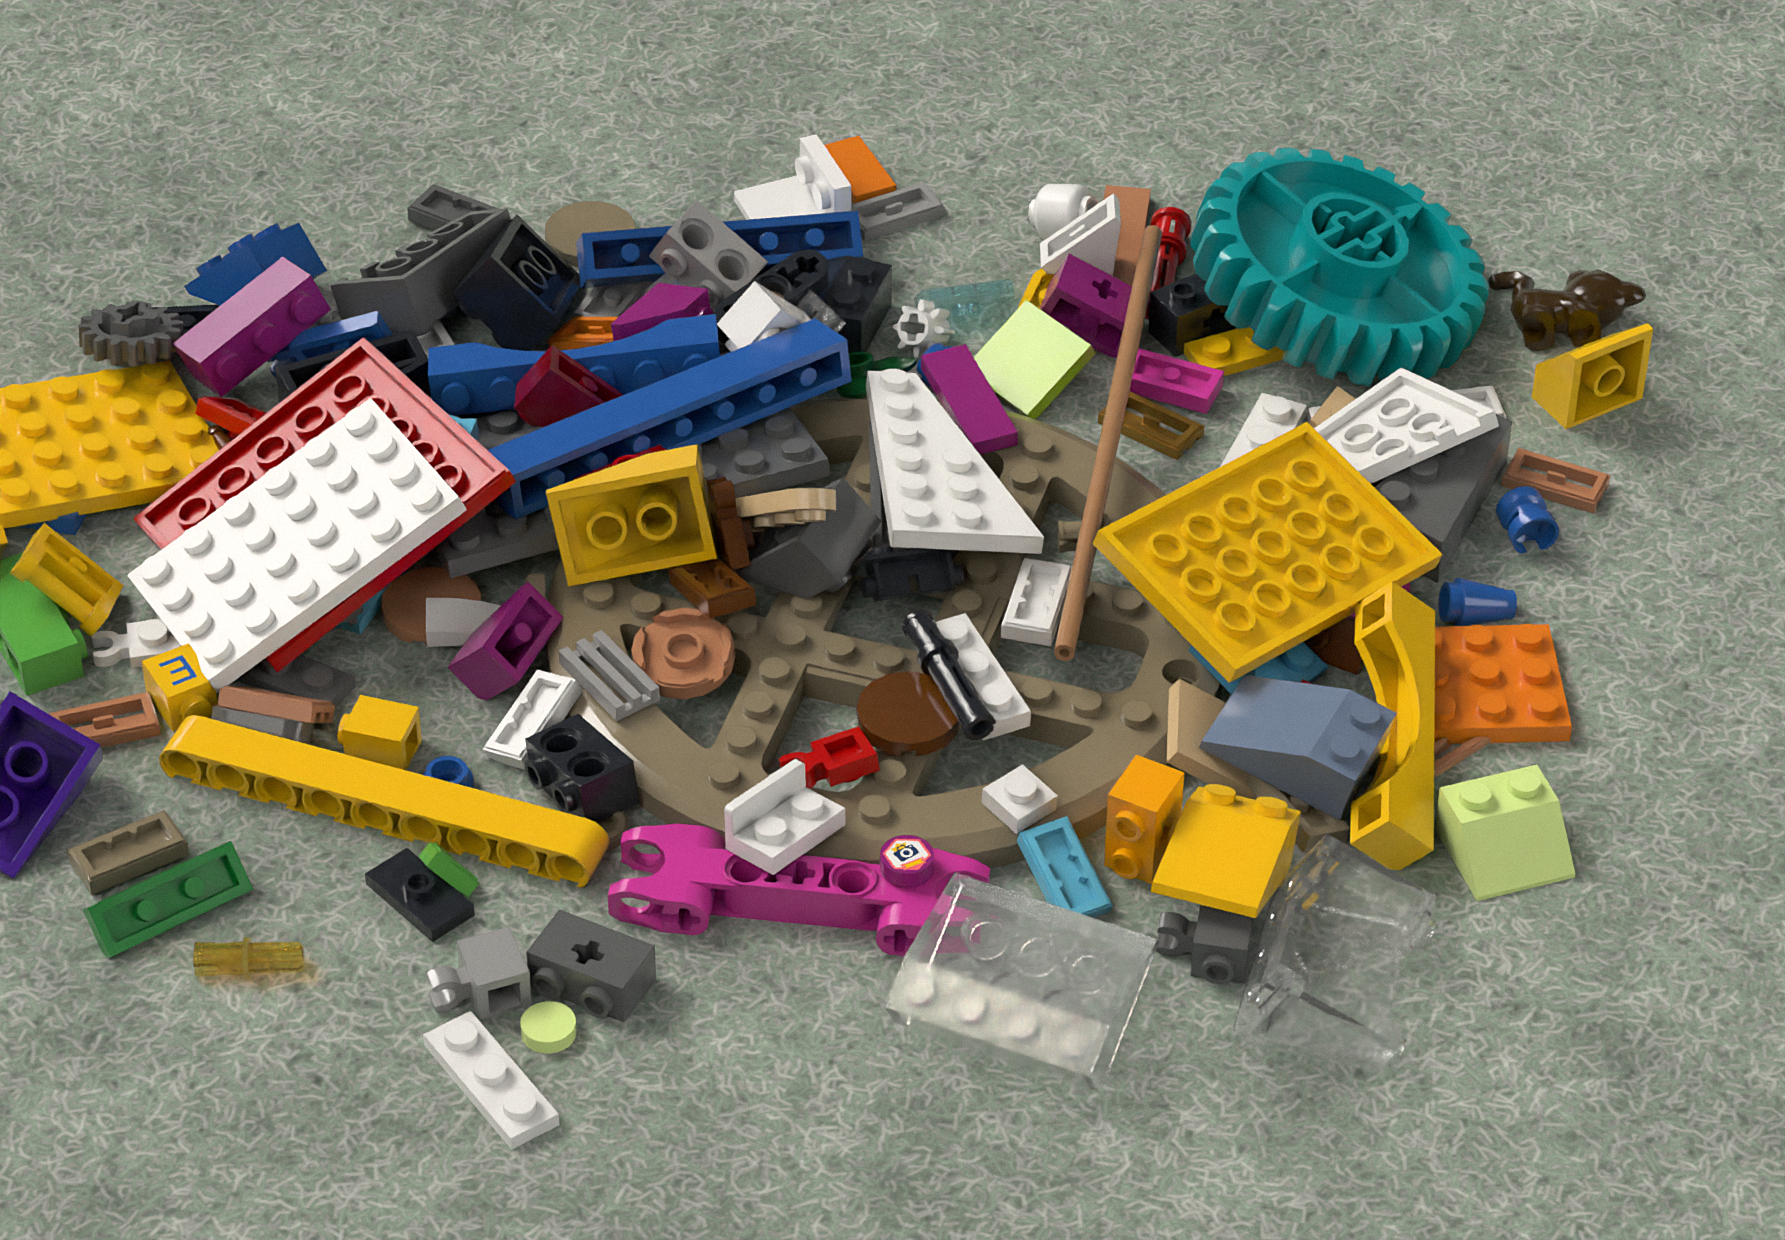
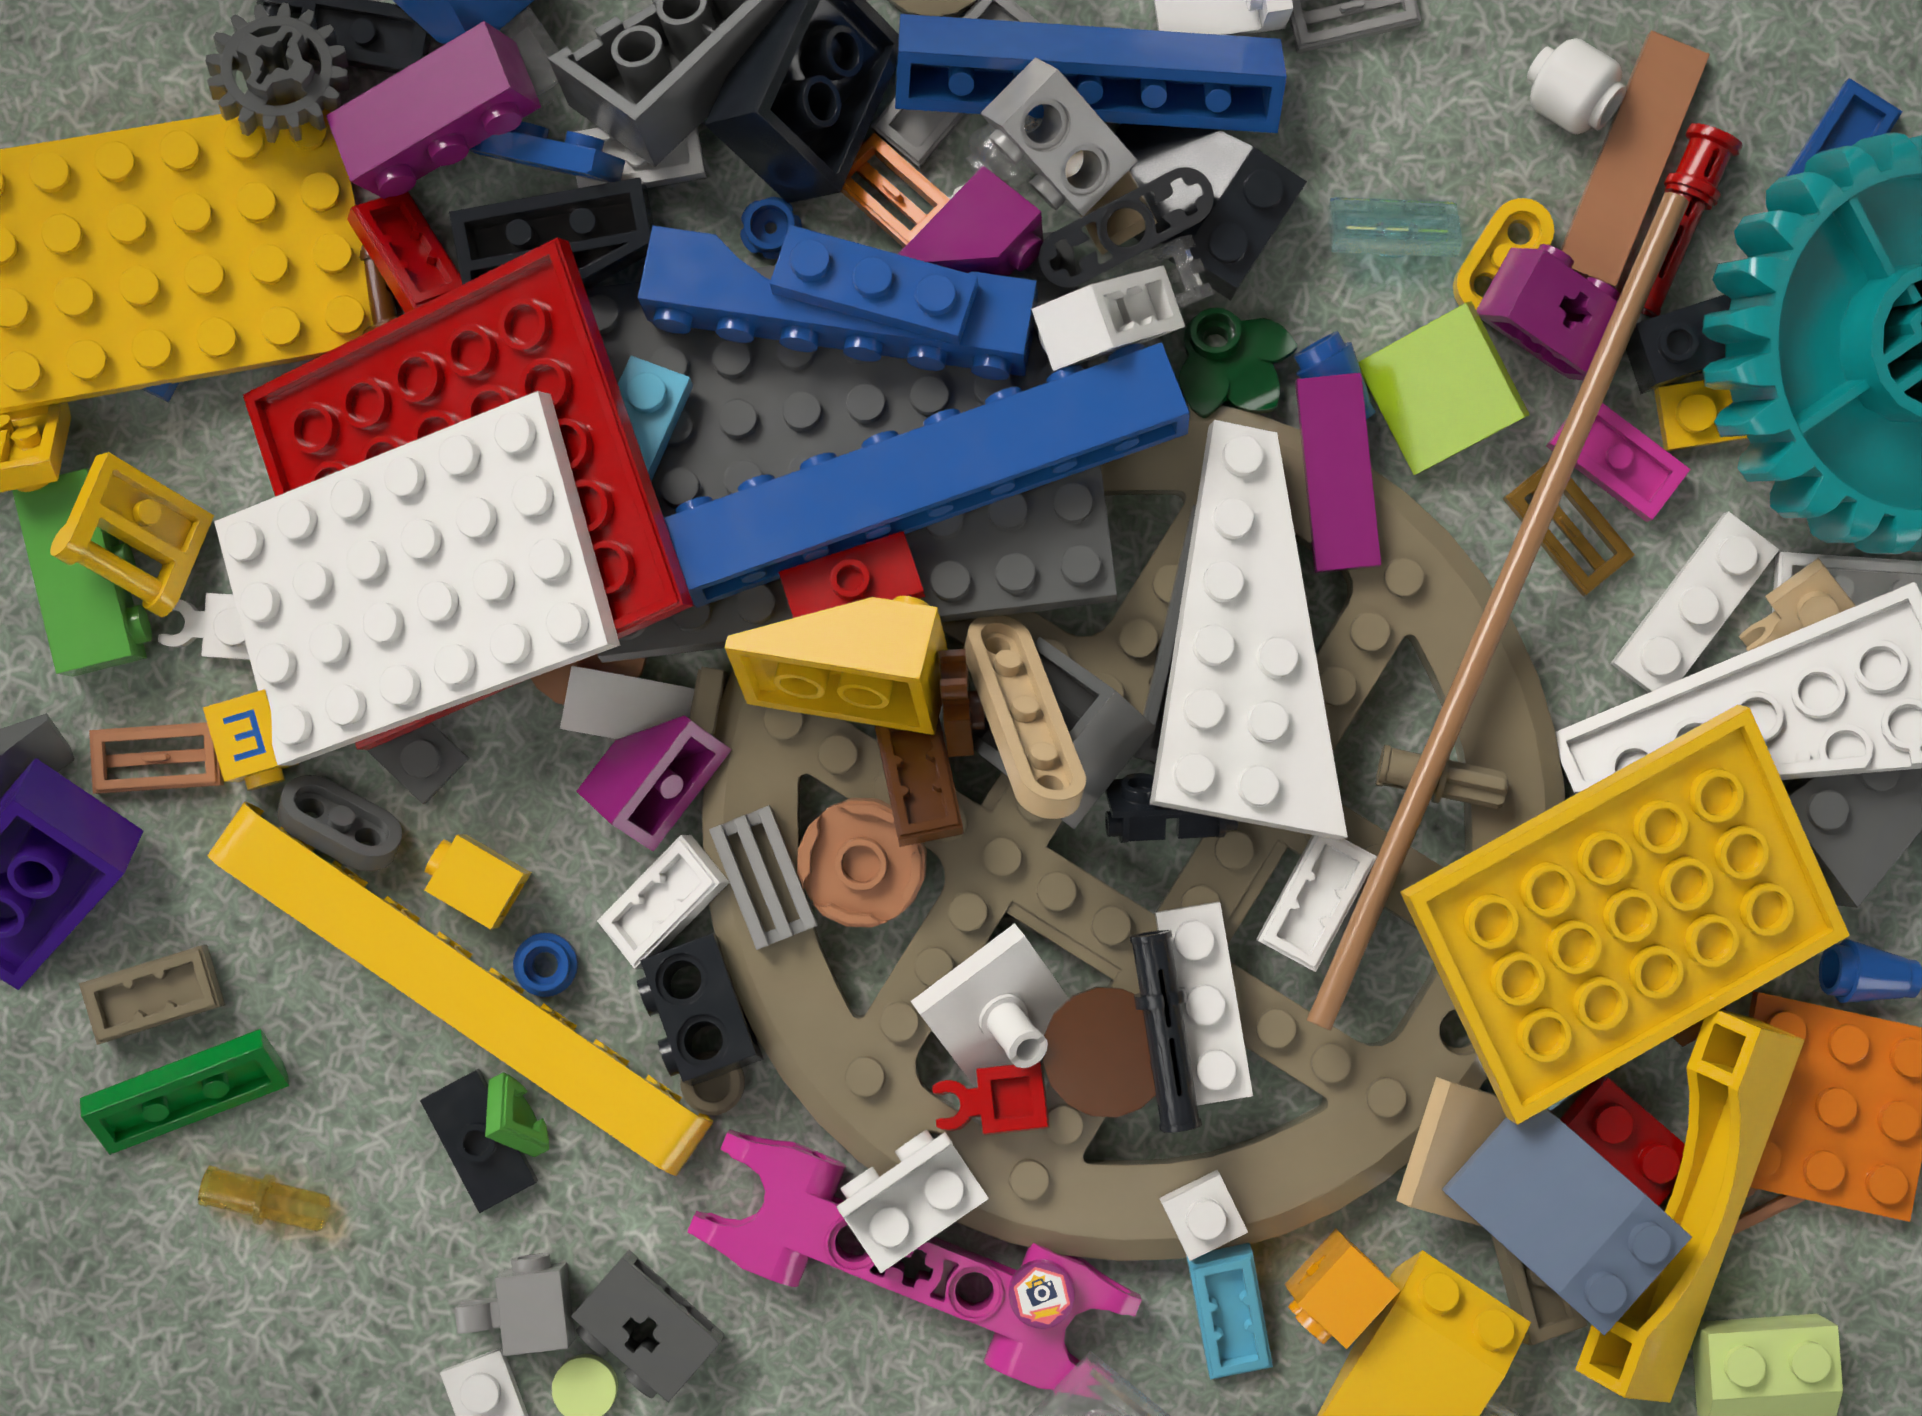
camera: 15 degrees right, 45 degrees up
(276, 704) = (355, 804): nougat tile -> none
(559, 389) = (814, 385): dark red slope -> none
(600, 329) = (874, 284): none -> blue plate
(806, 709) = (994, 1006): none -> white tile
(912, 323) = (1322, 287): white gear -> none
(1089, 237) = (1578, 190): white slope -> none

